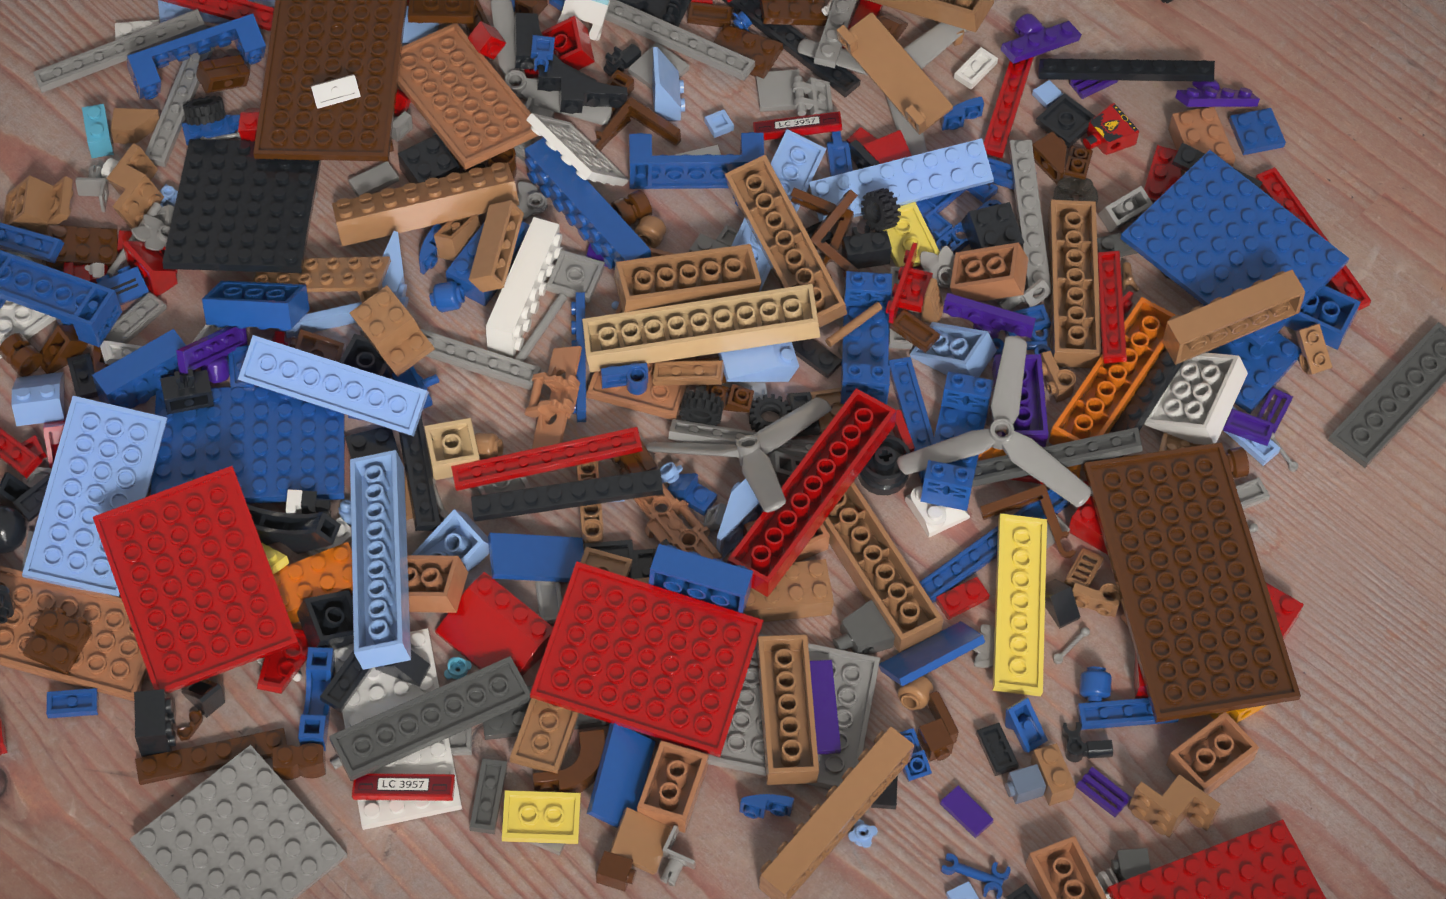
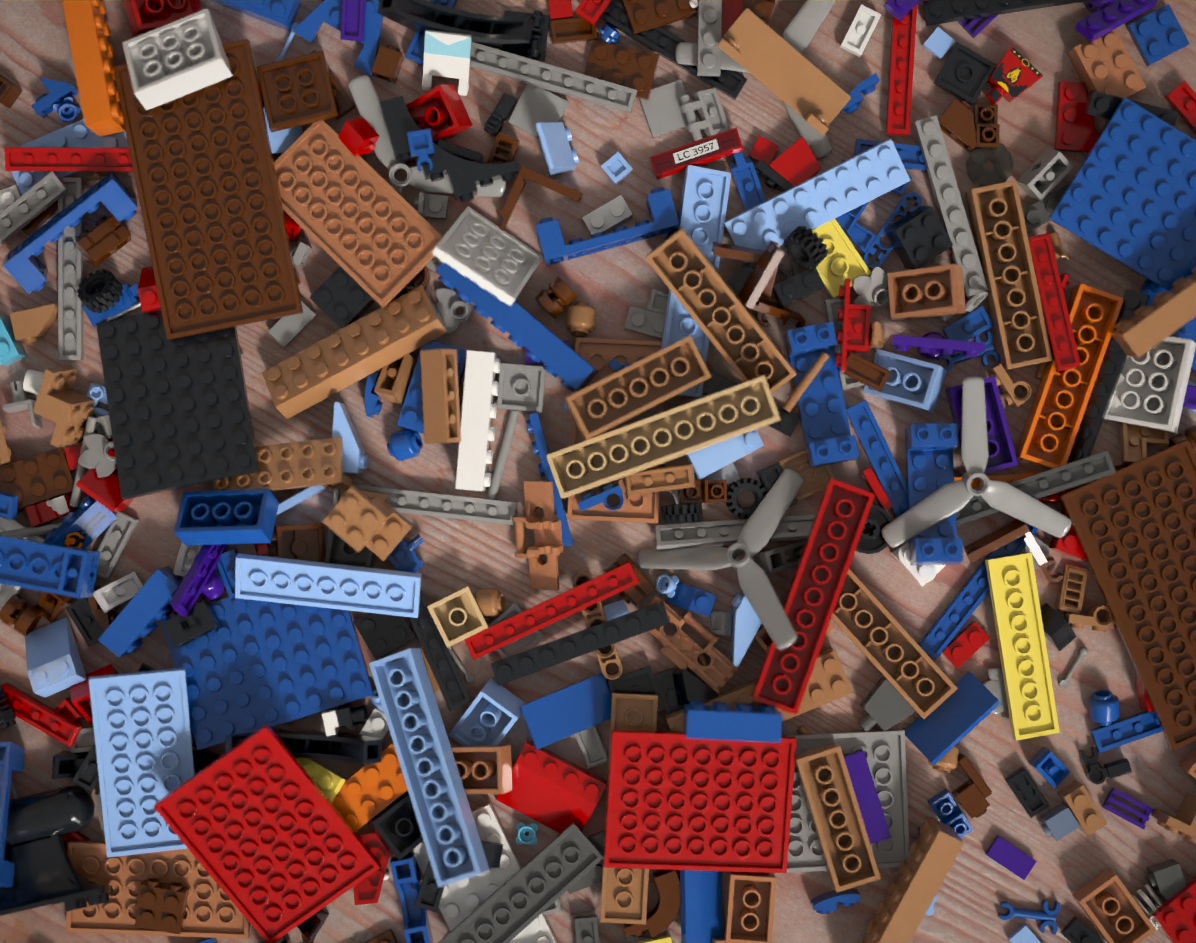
camera: 10 degrees left, 30 degrees up
(335, 91) = (226, 251): white plate -> none

